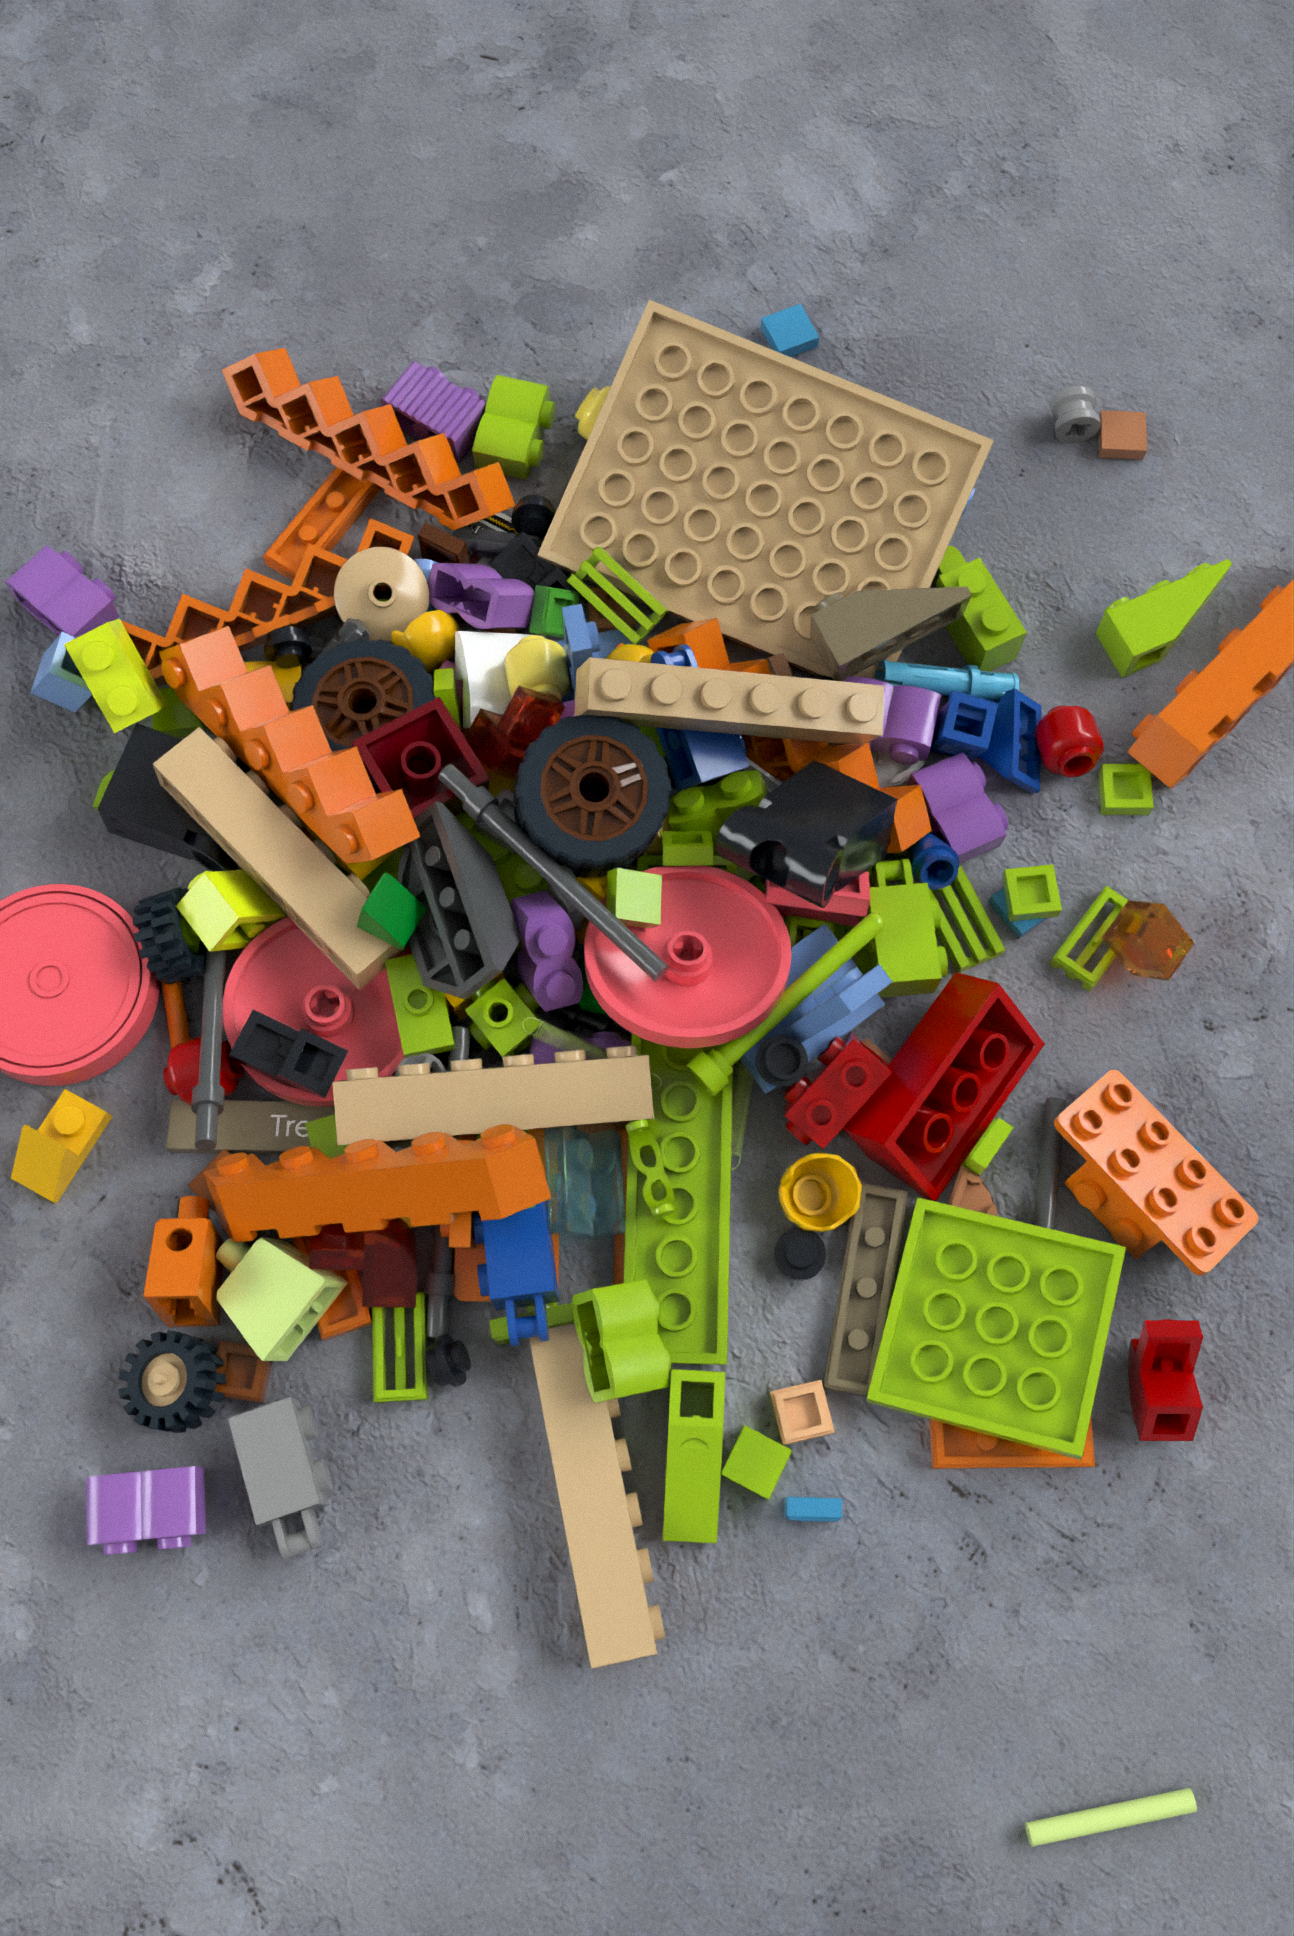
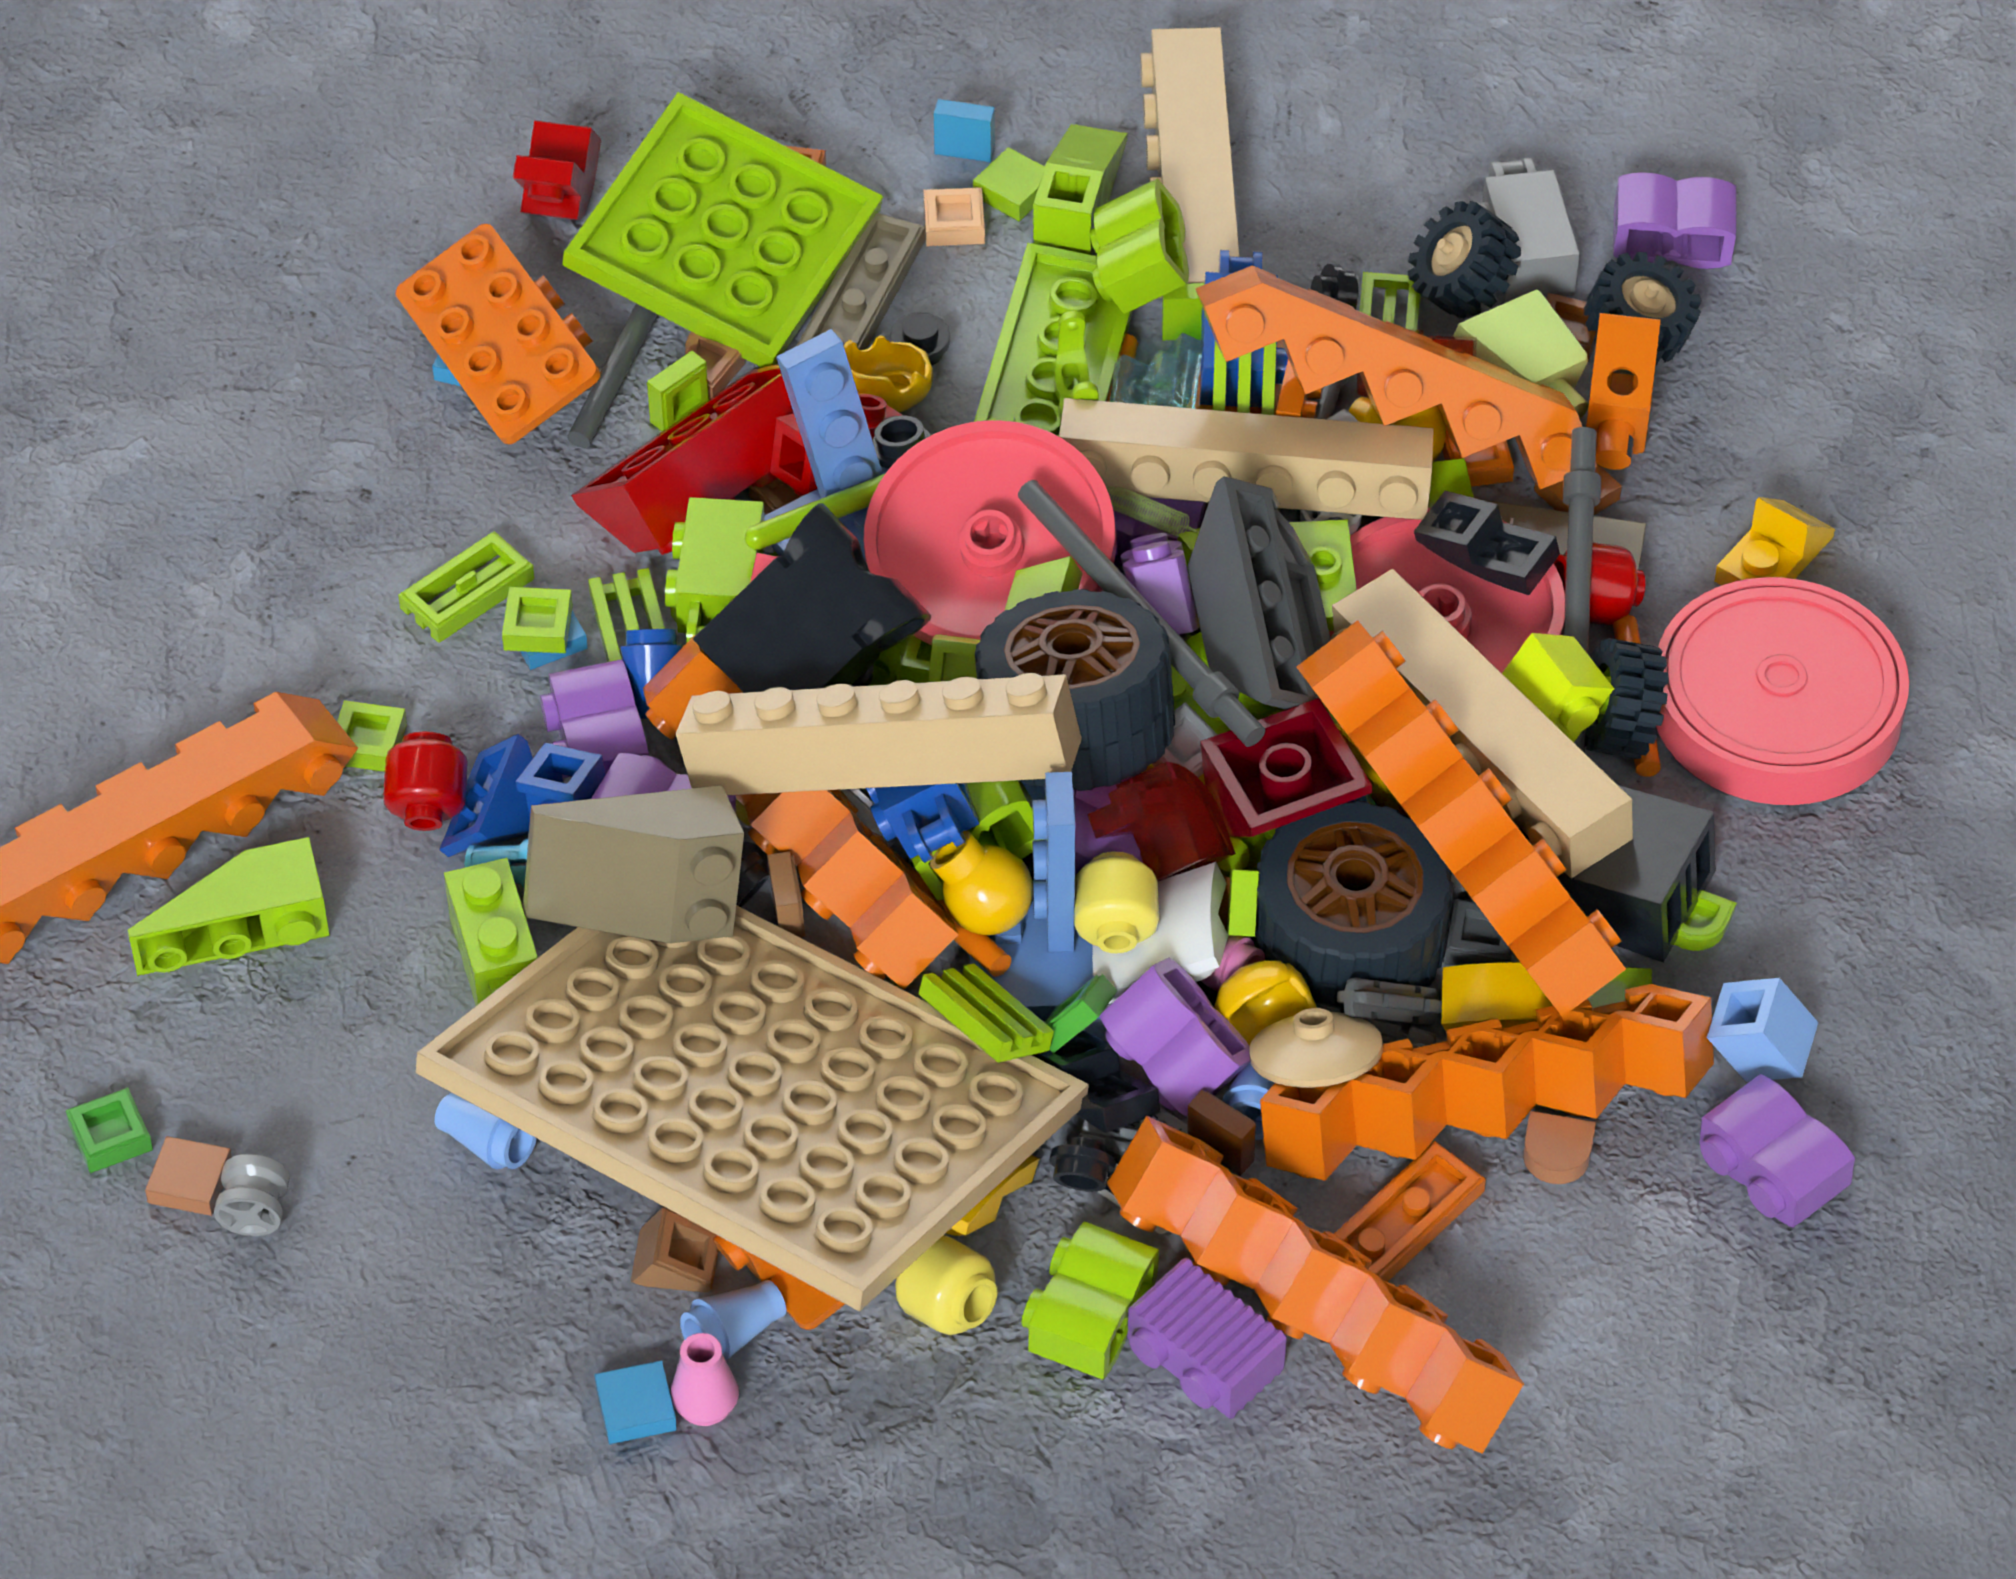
camera: 170 degrees left, 20 degrees down
(116, 675) = (1684, 952): neon yellow brick -> none
(215, 587) = (1557, 1147): none -> nougat tile
(287, 647) = (1452, 1011): black plate -> none
(332, 1399) = (1464, 259): none -> black wheel
(391, 912) = (1342, 605): green slope -> none
(751, 323) = (703, 1383): none -> bright pink cone
(1148, 940) = (415, 545): clear orange brick -> none
(1186, 460) = (109, 1130): none -> bright green tile

